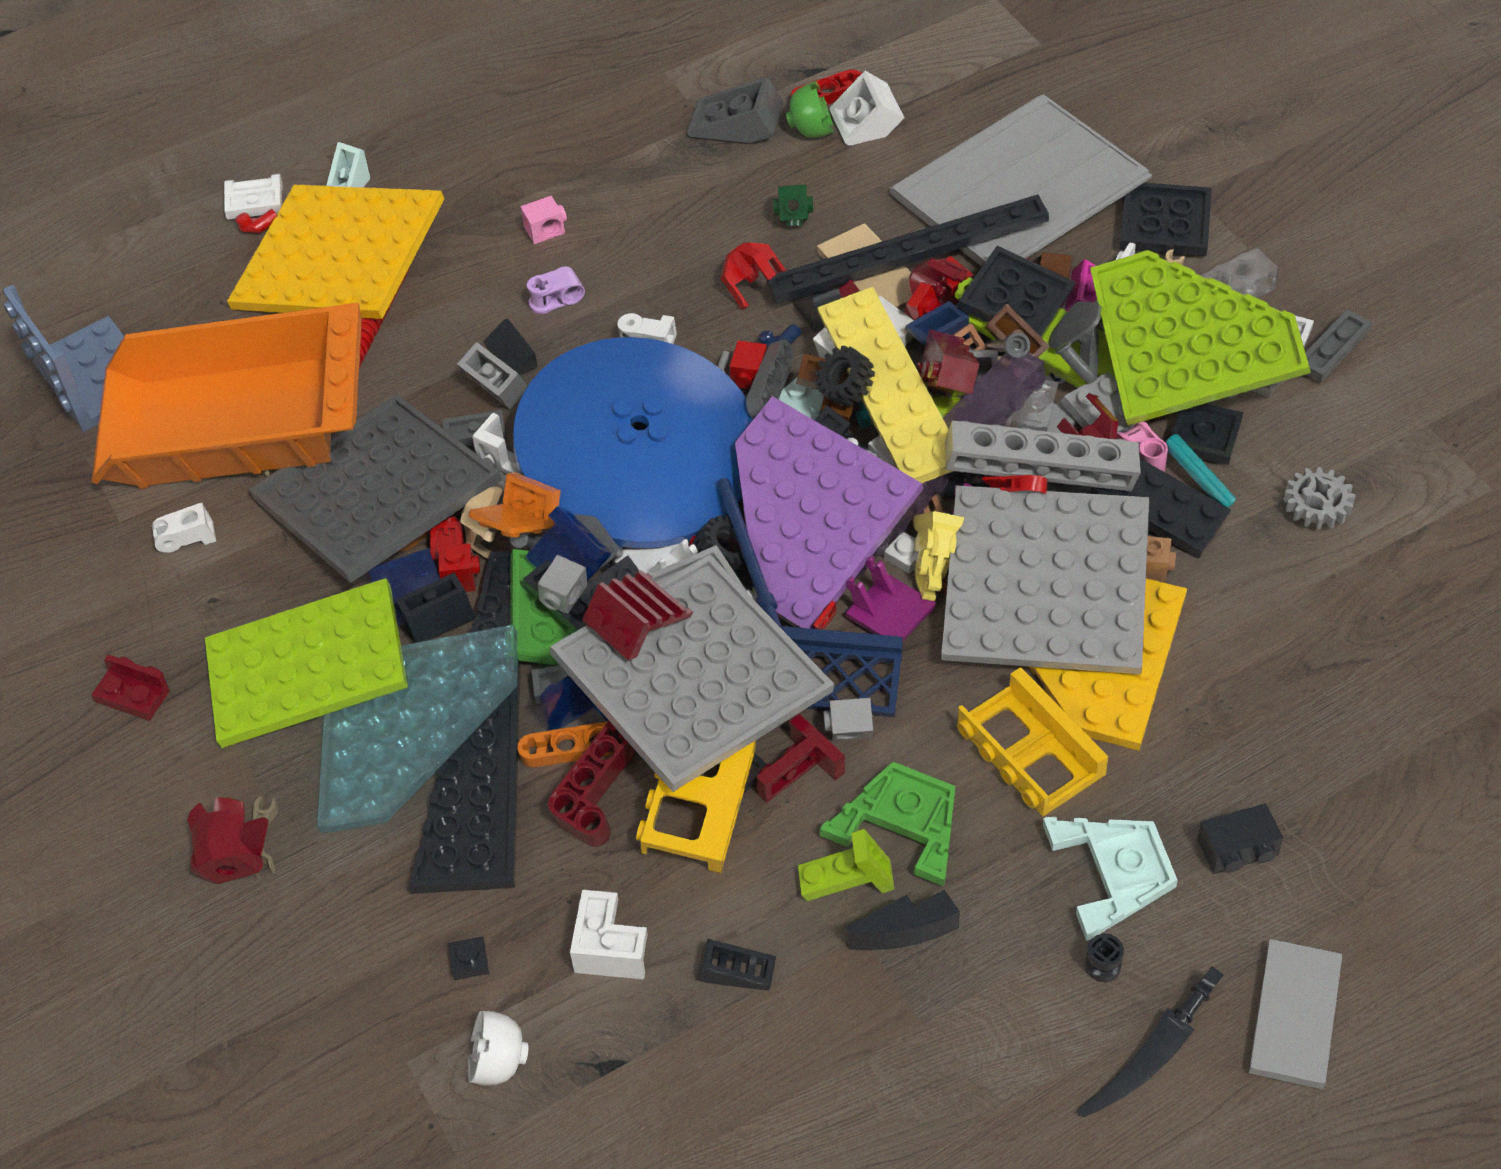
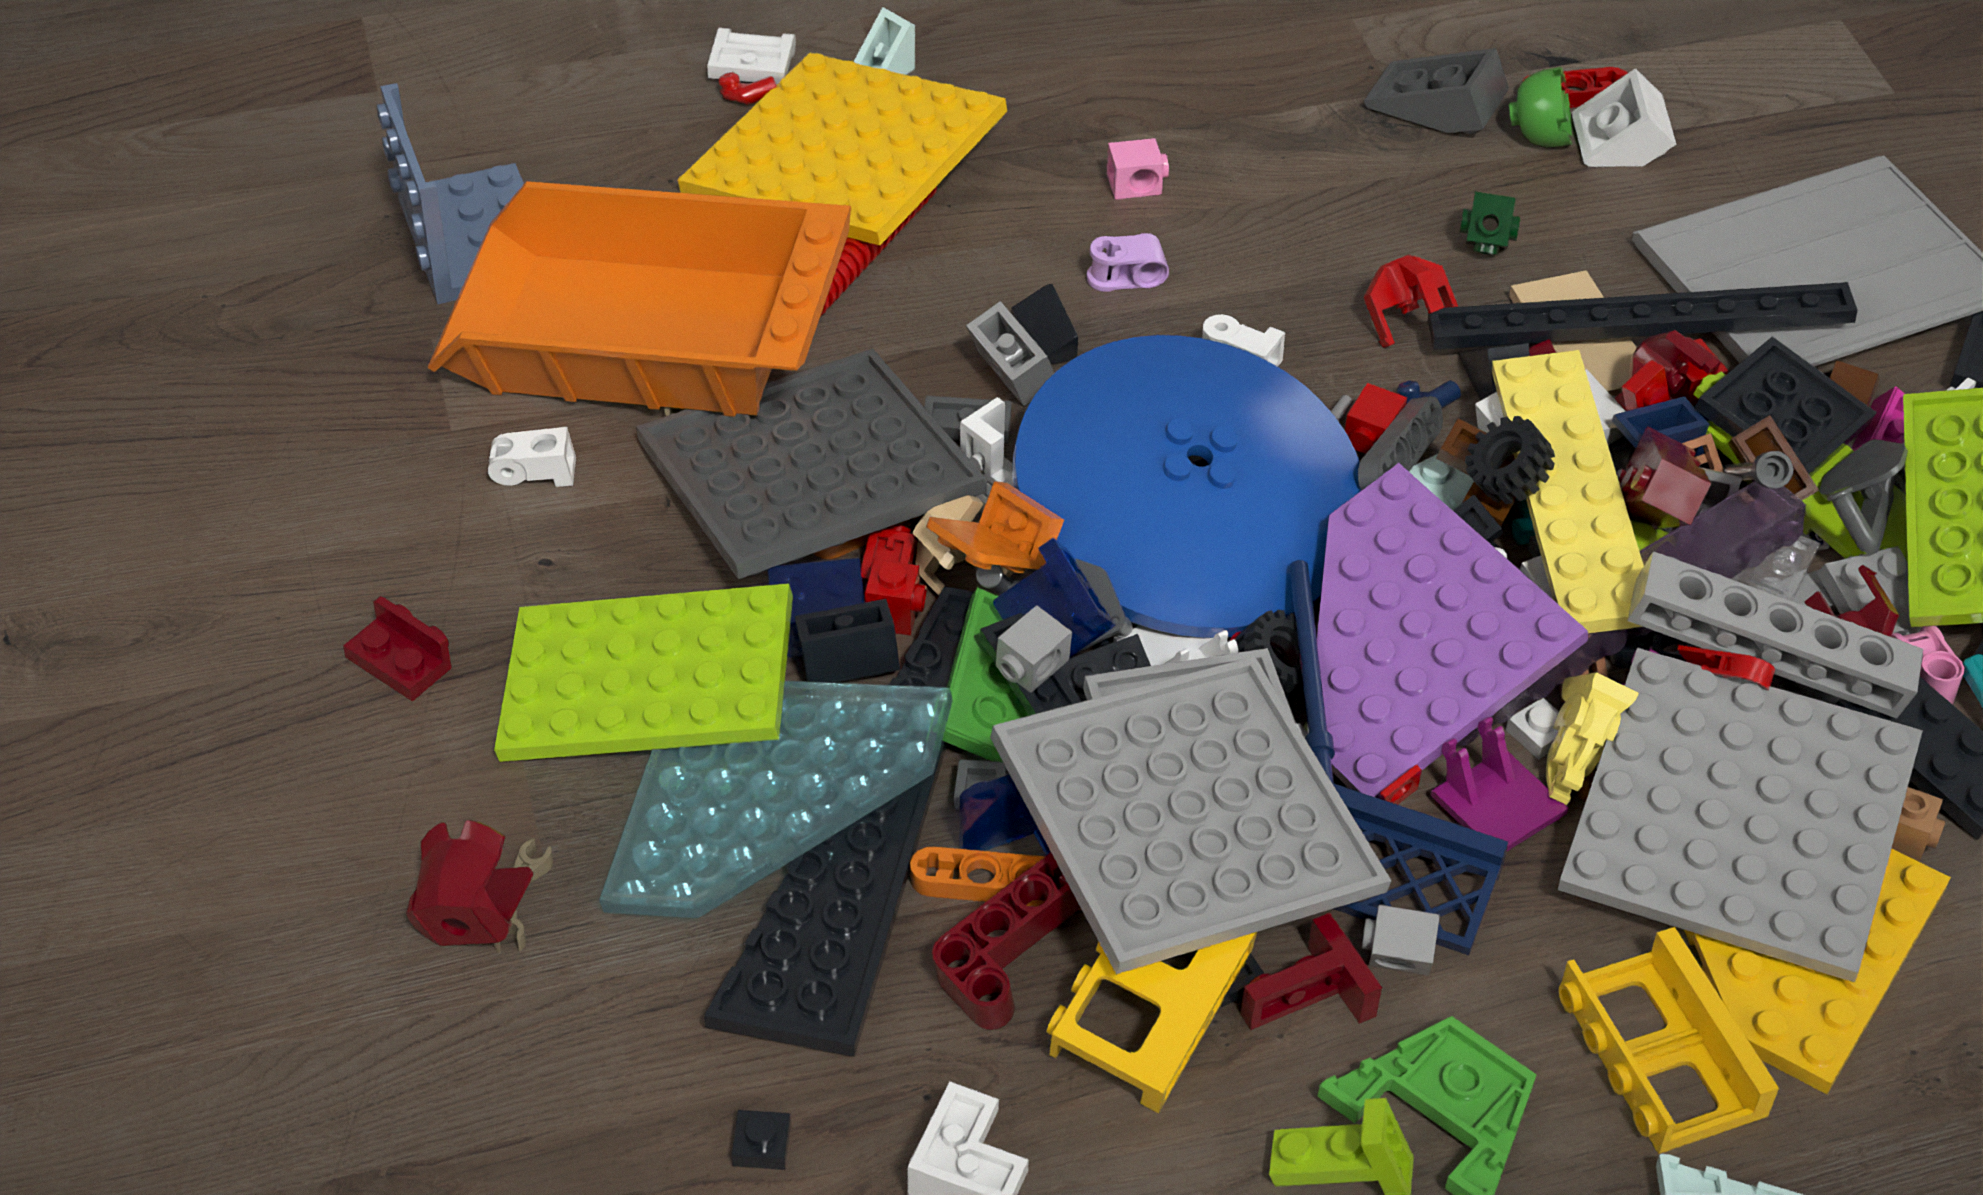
camera: 10 degrees right, 5 degrees down
(629, 610) = (1117, 701): dark red plate -> none

